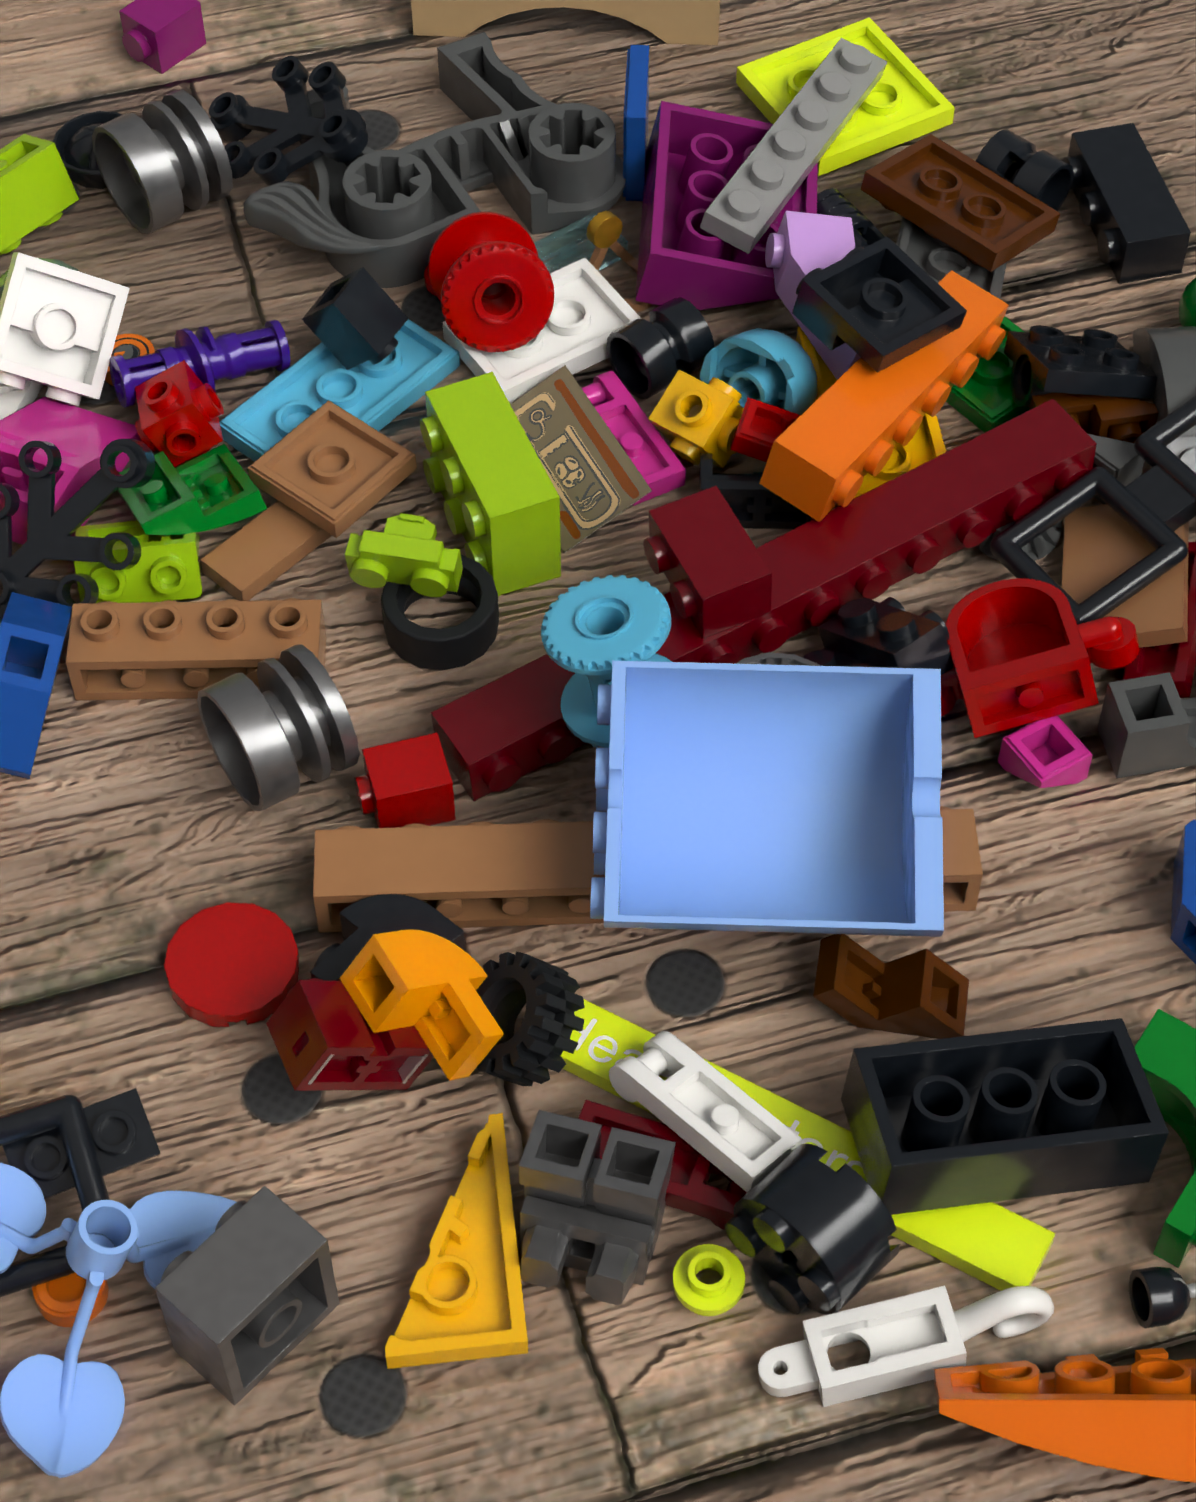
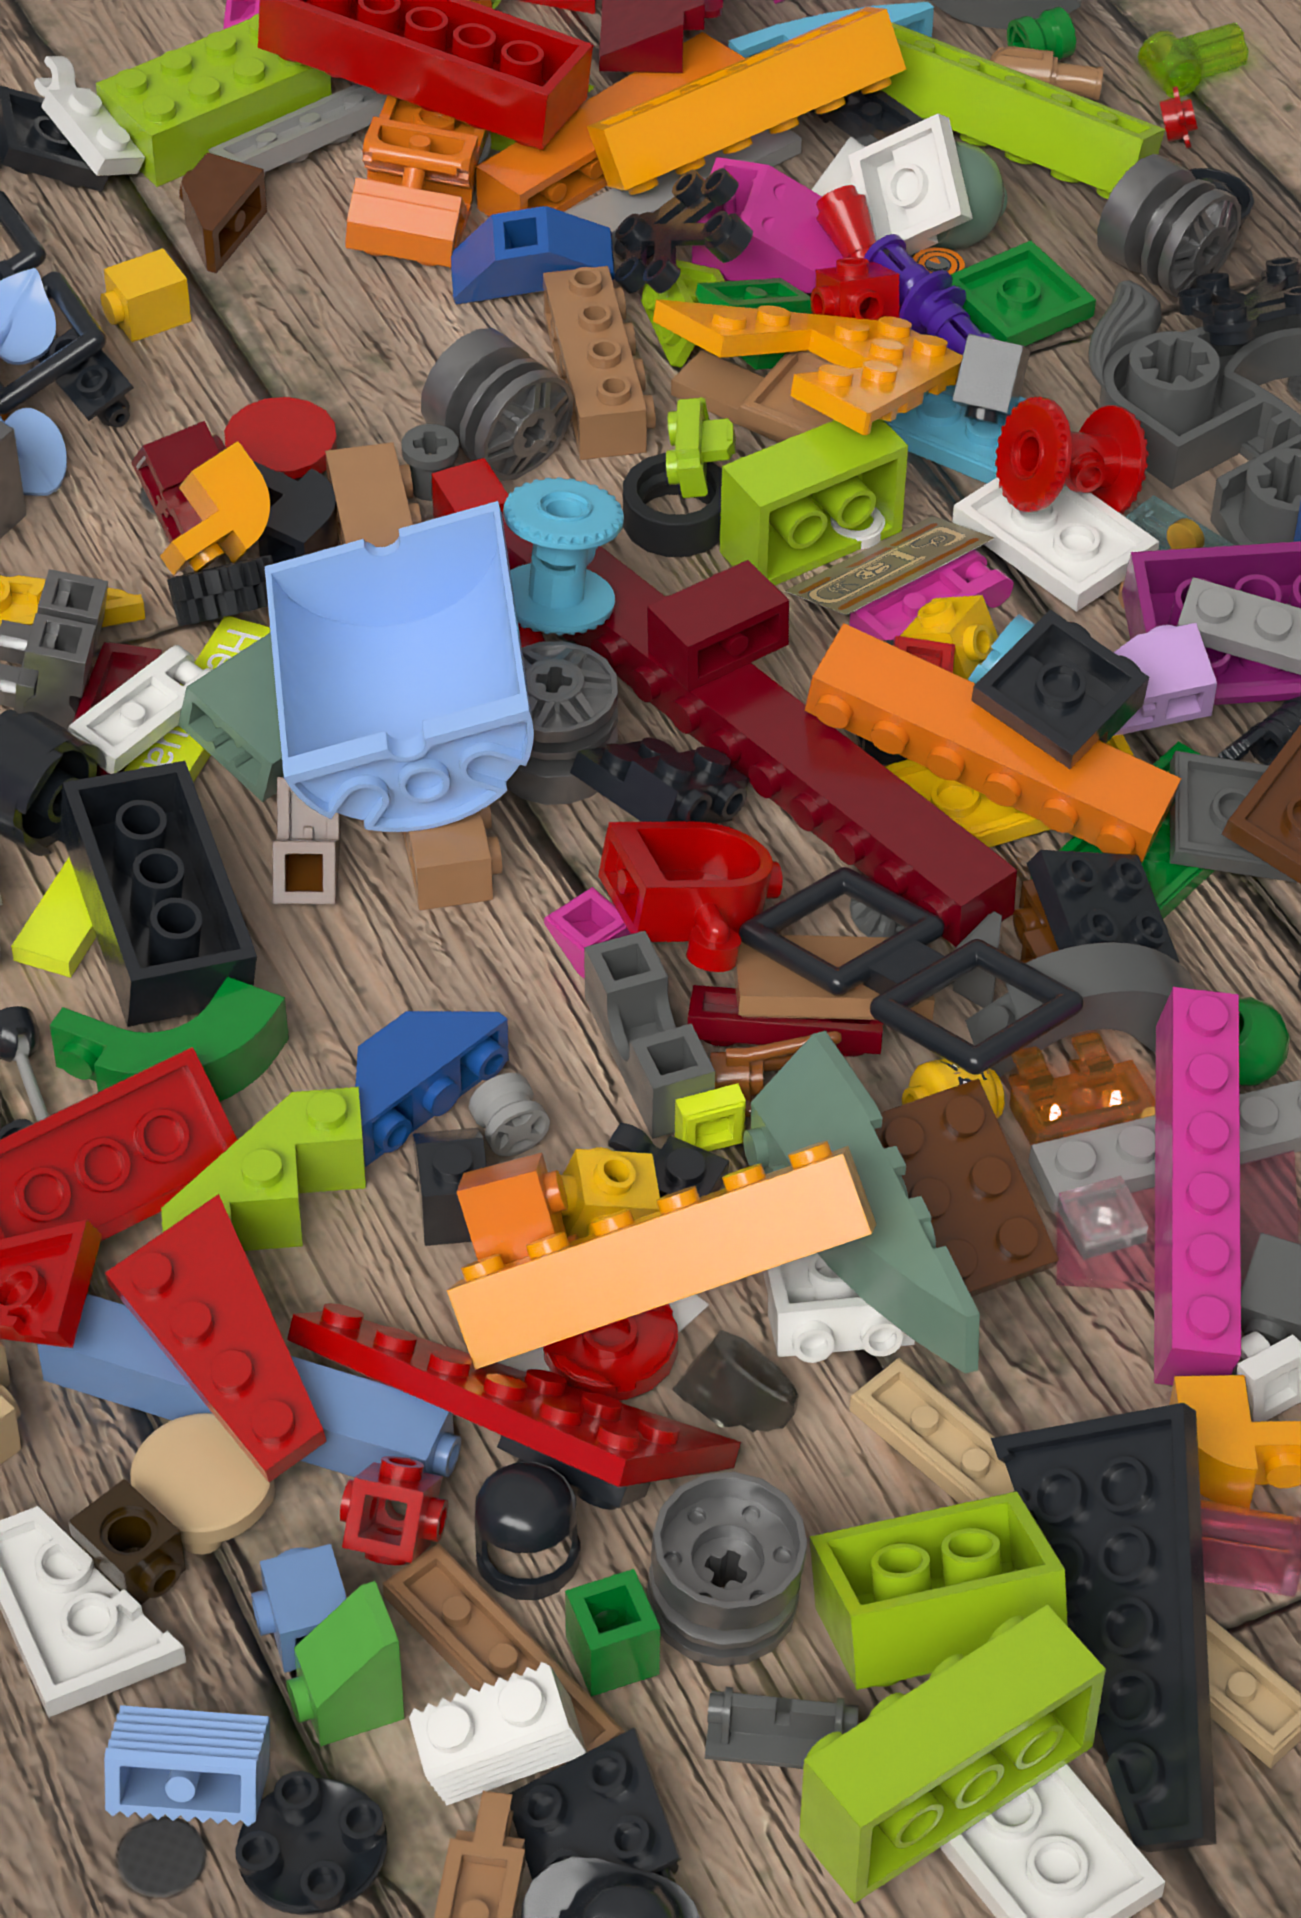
camera: 80 degrees right, 5 degrees down
(74, 396) = (847, 221): none -> red cone
(195, 292) = (1022, 295): none -> green plate
(303, 389) = (877, 366): none -> light orange wing
(313, 806) = (416, 445): none -> dark grey bush
(652, 352) = (1035, 587): black wheel -> none
(730, 995) = (237, 719): none -> sand green brick

